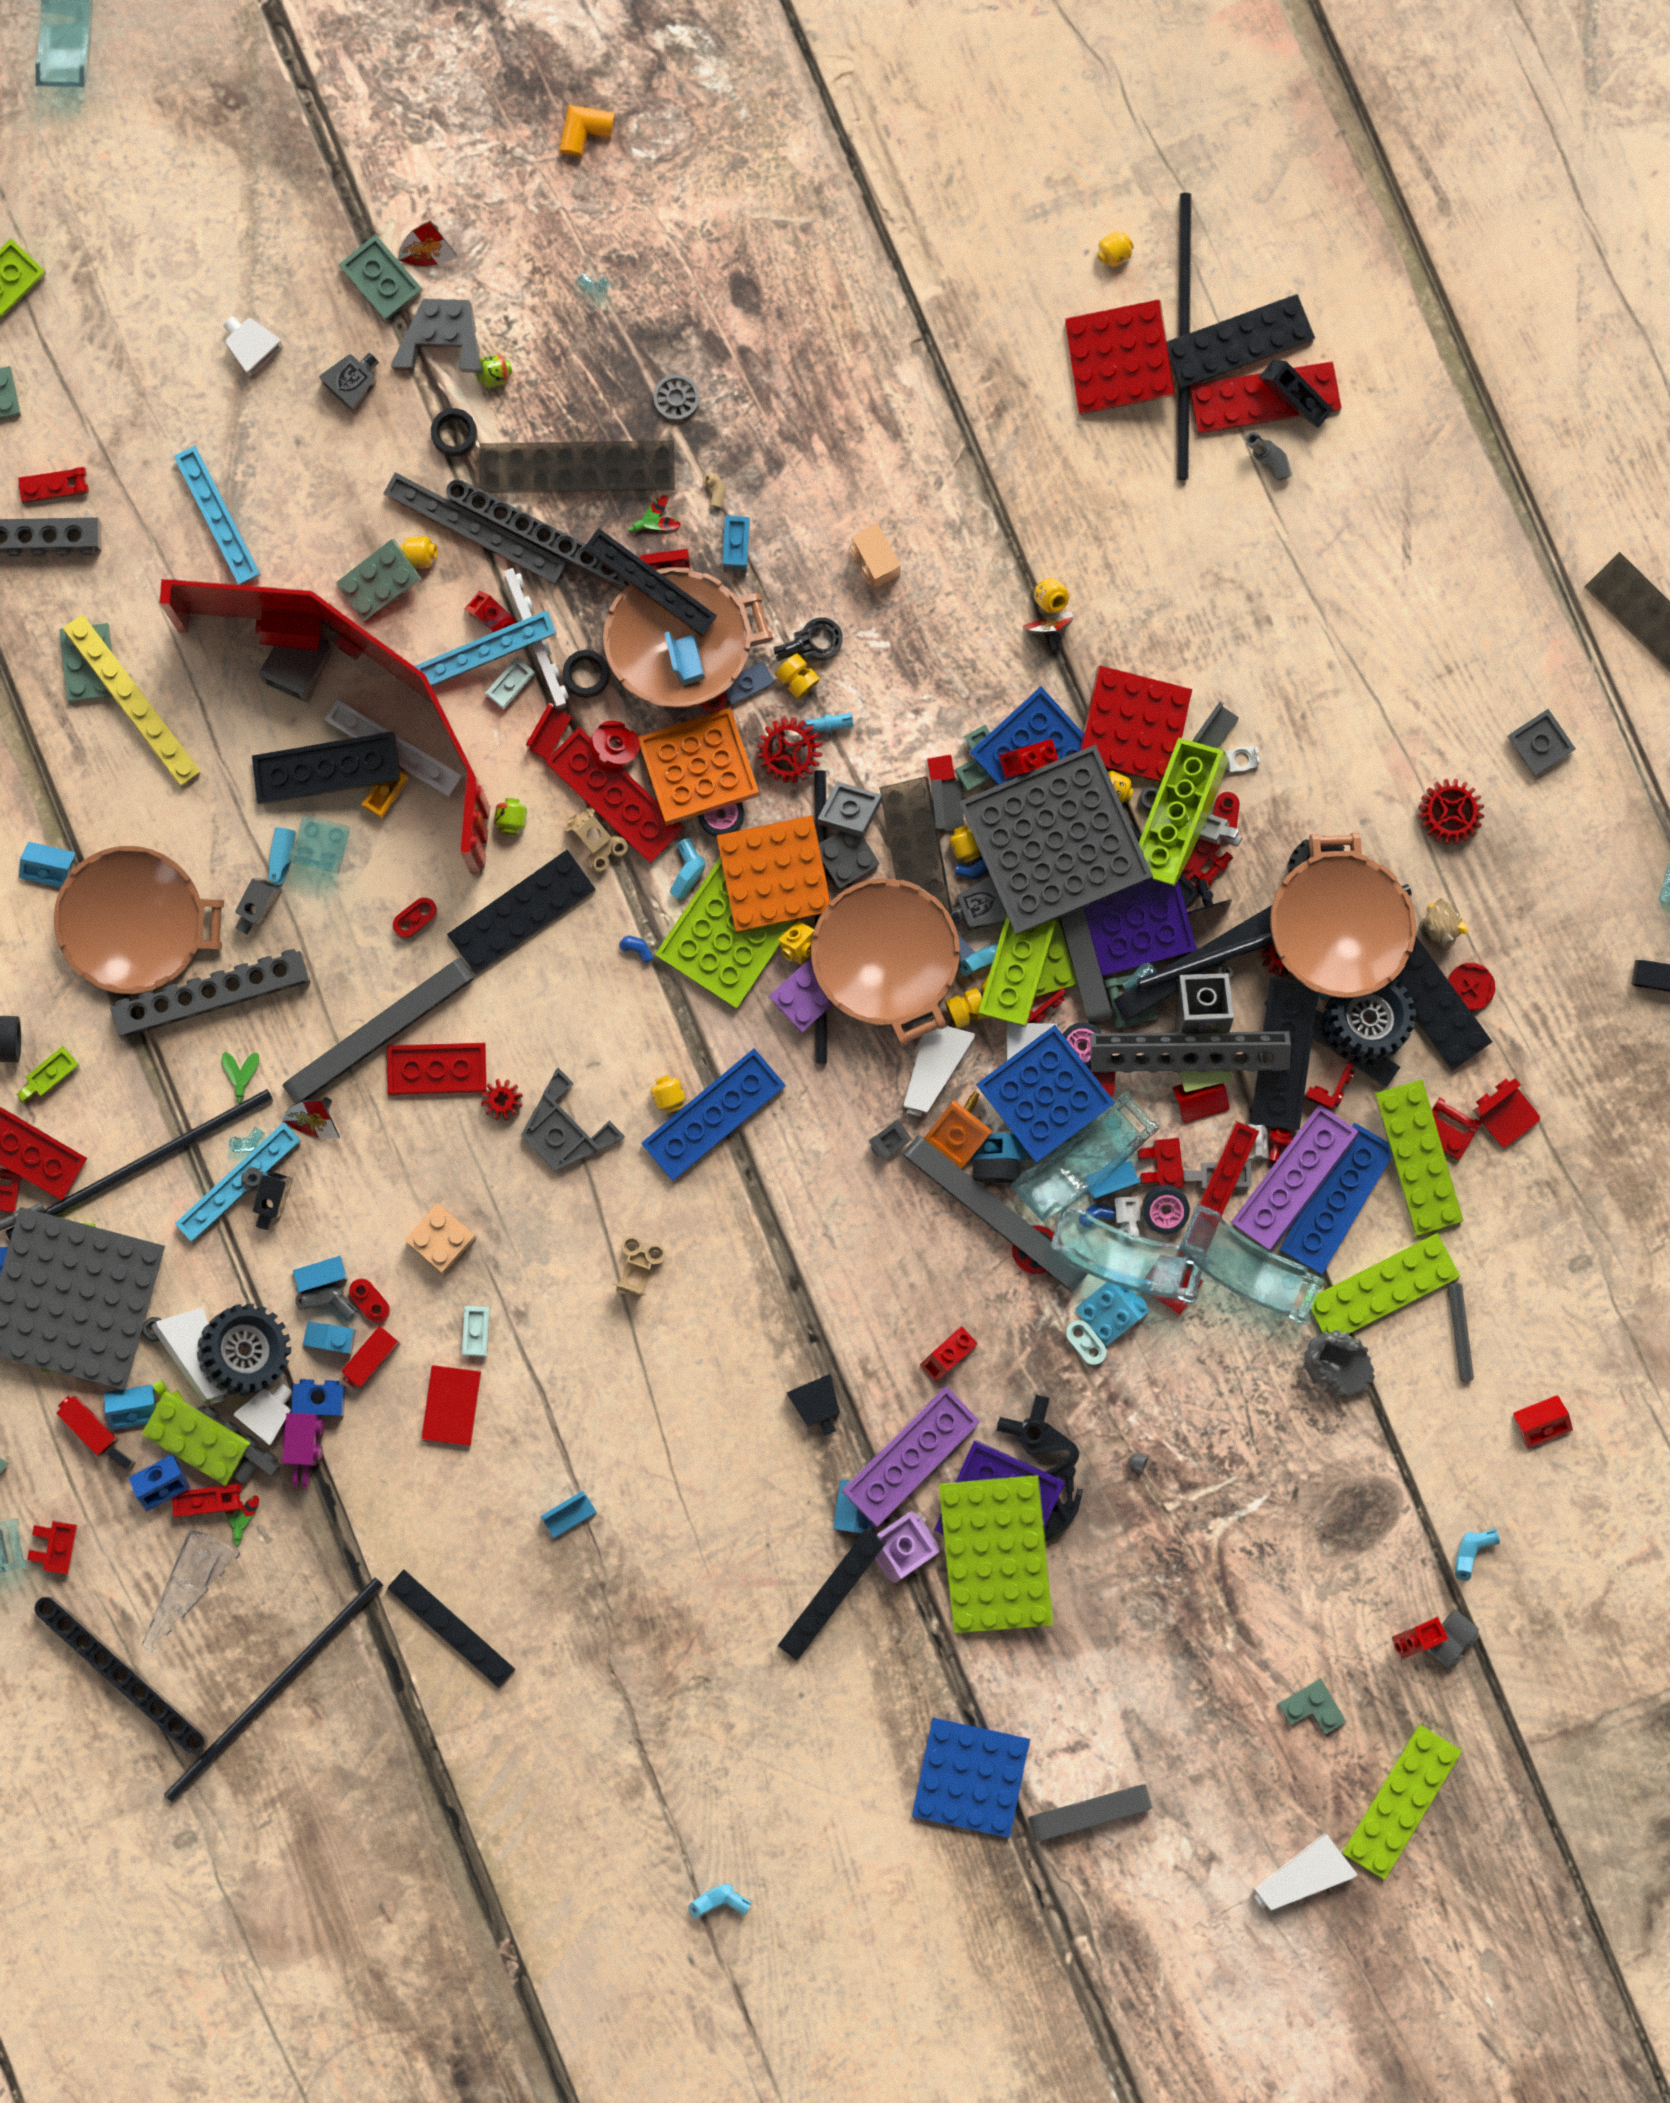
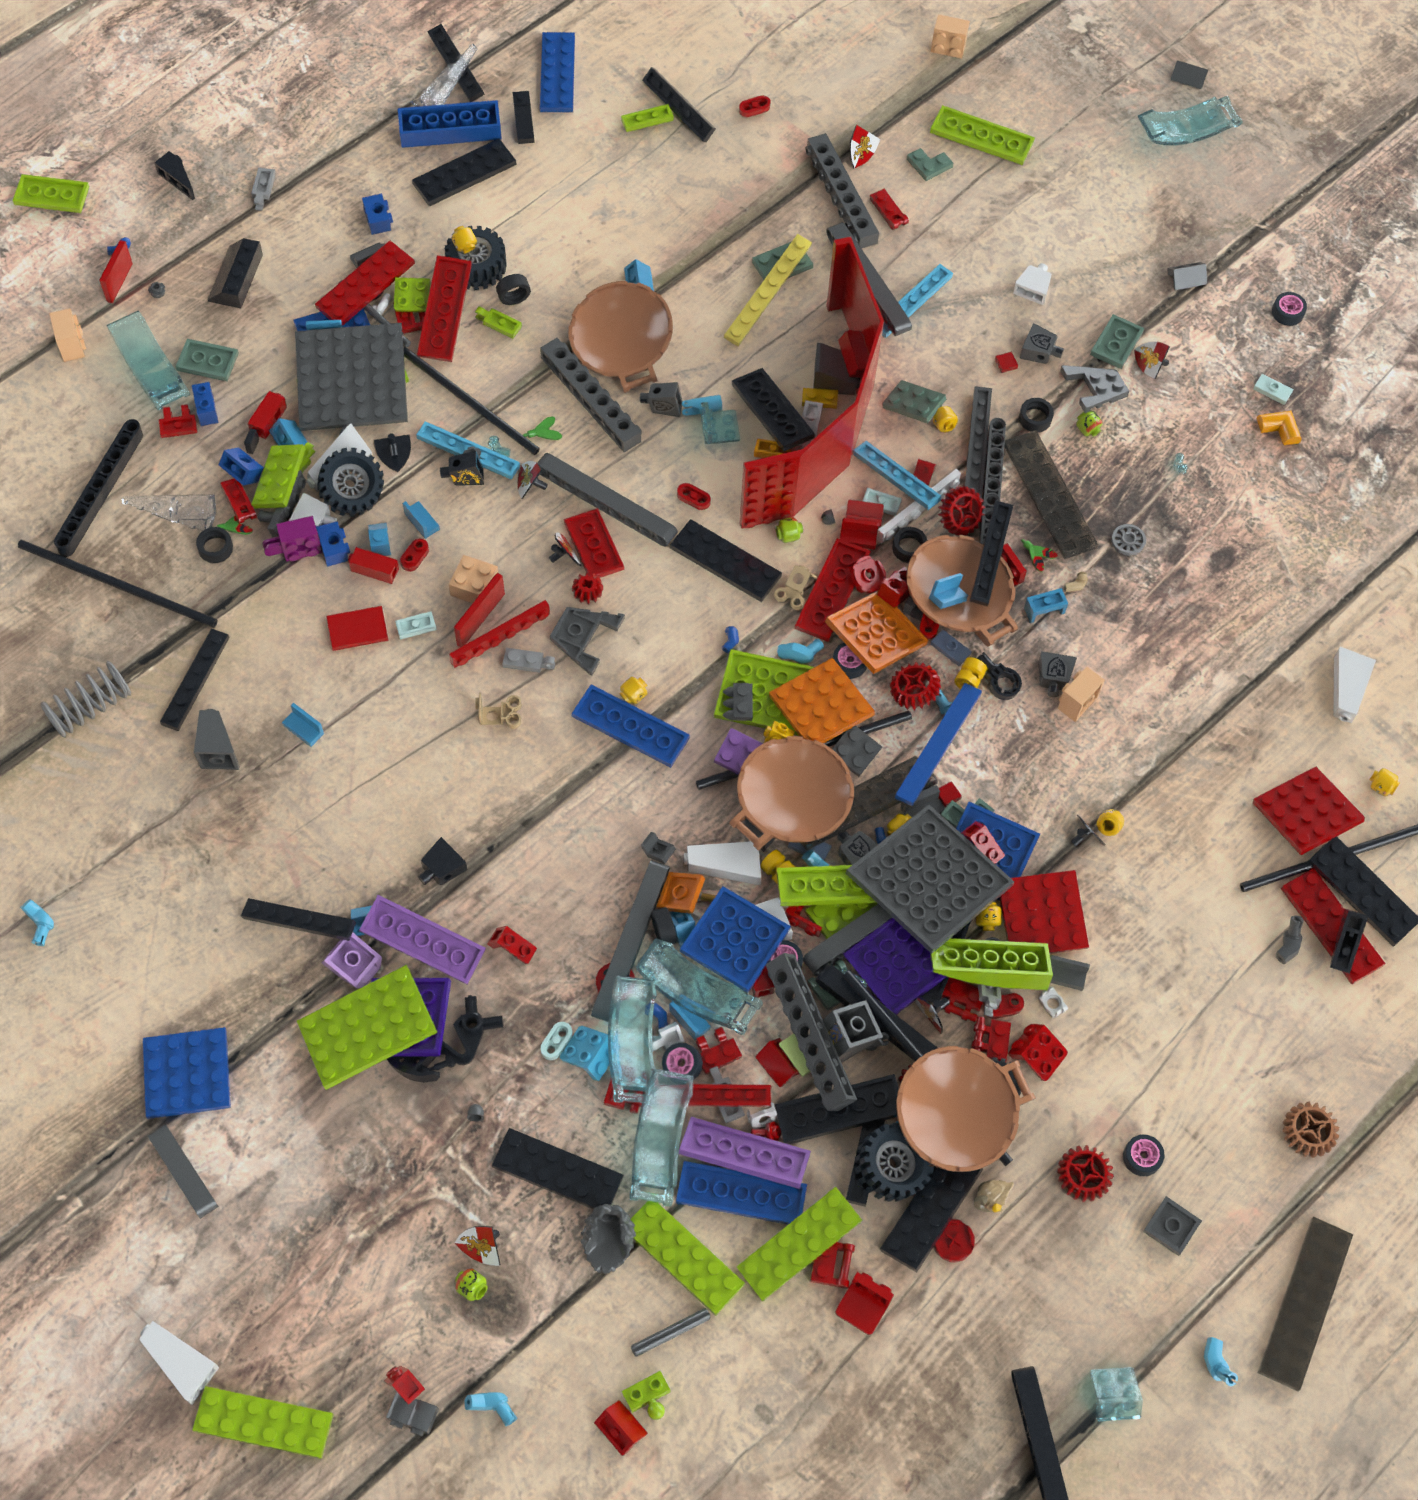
camera: 70 degrees right, 20 degrees down
(40, 1502) = (205, 404): none -> blue brick
(165, 561) = (889, 307): none -> dark grey beam
(199, 1277) = (394, 451): none -> black shield
(282, 1550) = (210, 533): none -> black tyre
(309, 135) = (1188, 275): none -> panel
(322, 698) = (827, 397): none -> yellow plate
(326, 1296) = (407, 526): dark grey arm -> none
(357, 434) = (1006, 362): none -> red tile
(418, 19) = (1287, 301): none -> black wheel
(436, 1108) = (566, 548): none -> shield
(445, 1719) = (59, 725): none -> light grey piece
(491, 1246) = (479, 610): none -> red tile
(509, 757) = (828, 517): none -> dark grey hinge
(522, 713) = (865, 511): none -> red panel
(525, 111) = (1273, 389): none -> light aqua plate
(532, 1240) = (497, 635): none -> red plate
(558, 1627) = (212, 743): none -> dark grey slope
(569, 591) = (969, 504): none -> red gear
(574, 1210) = (527, 660): none -> light grey plate
(644, 715) = (895, 588): none -> red brick
(734, 970) = (740, 704): none -> dark grey plate
(830, 571) = (1055, 671): none -> dark grey torso
(850, 809) = (890, 739): plate -> none
(881, 755) = (938, 744): none -> blue tile
(973, 223) = (1350, 682): none -> white slope
(1237, 1393) = (557, 1170): none -> black plate
(1265, 842) = (997, 1040): none -> red plate
(1293, 801) = (1039, 1050): none -> red bracket
(1295, 1506) = (480, 1244): none -> shield
(1315, 1700) = (327, 1320): sand green plate -> none
(1319, 1095) = (822, 1163): red bracket -> none
(1334, 1531) = (472, 1283): none -> lime head
(1452, 725) = (1154, 1155): none -> wheel
(1481, 541) = (1306, 1114): none -> nougat gear
(1516, 1382) = (646, 1393): none -> lime plate

